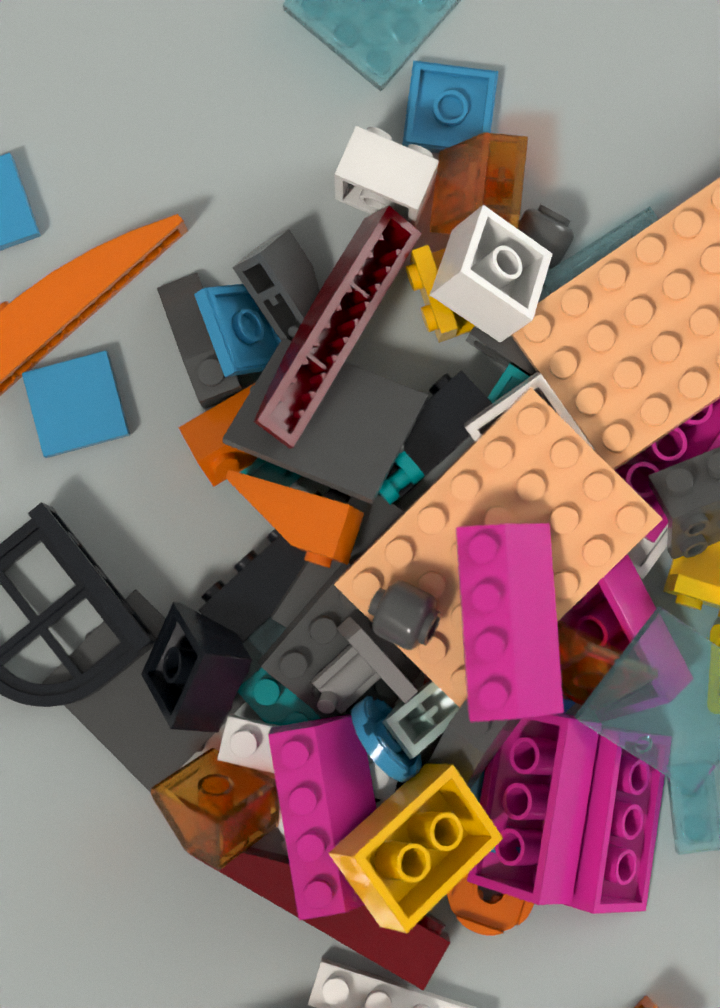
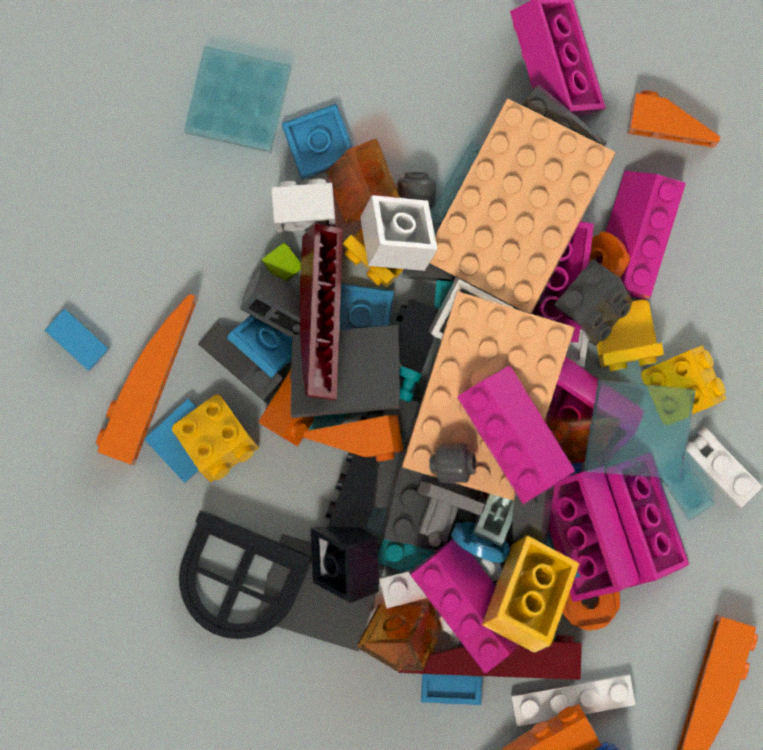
camera: 25 degrees left, 0 degrees up
(111, 420) = (214, 438): none -> yellow bracket
(247, 911) = (451, 689): none -> dark azure tile
(320, 238) = (282, 262): none -> lime slope
(395, 350) = (364, 307): none -> dark azure tile

